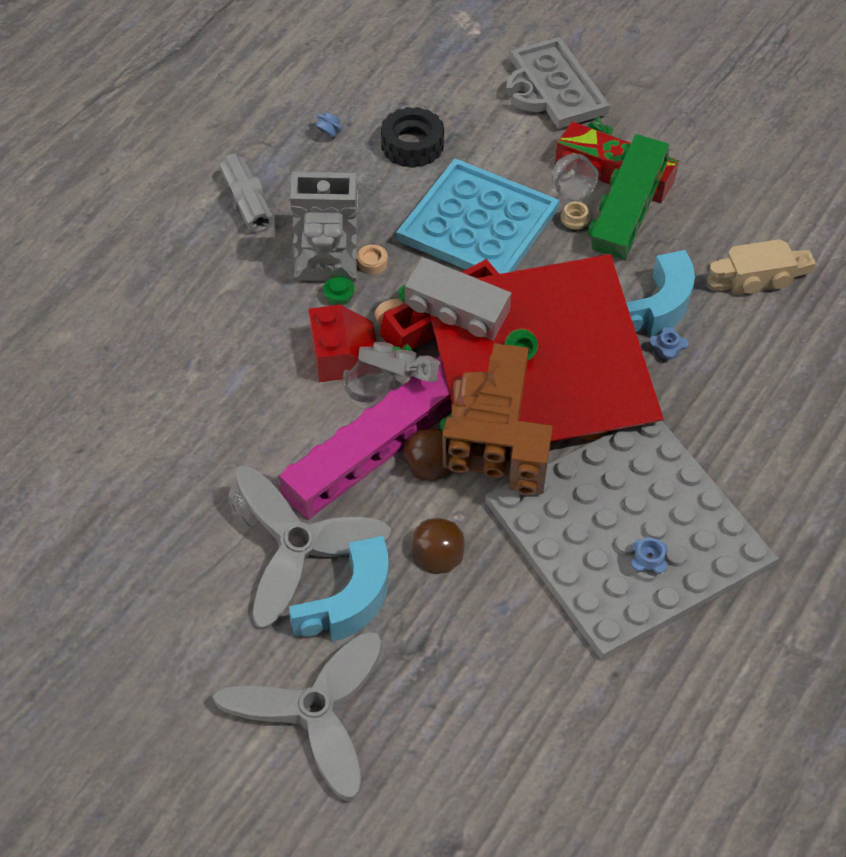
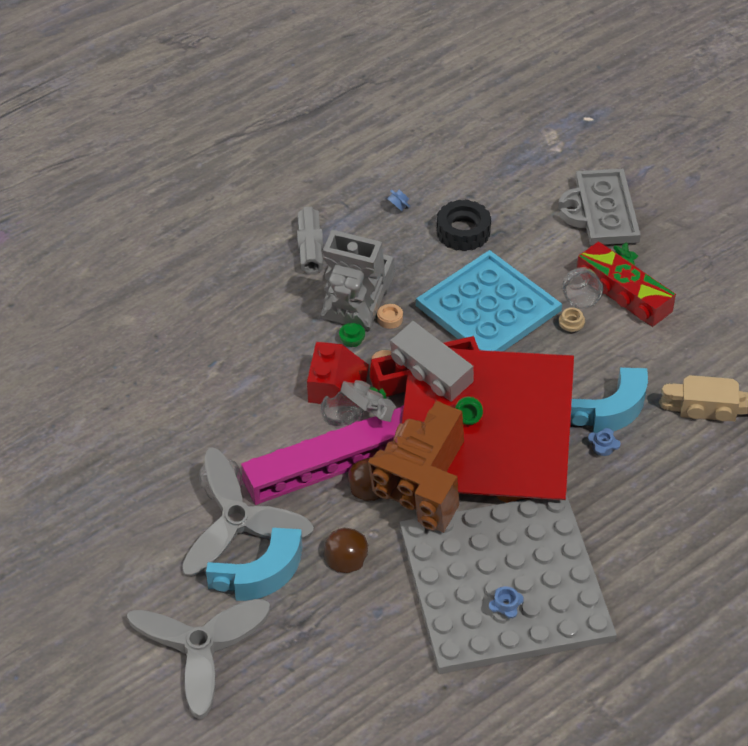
camera: 20 degrees right, 5 degrees down
(629, 197) = (618, 313): green brick -> none

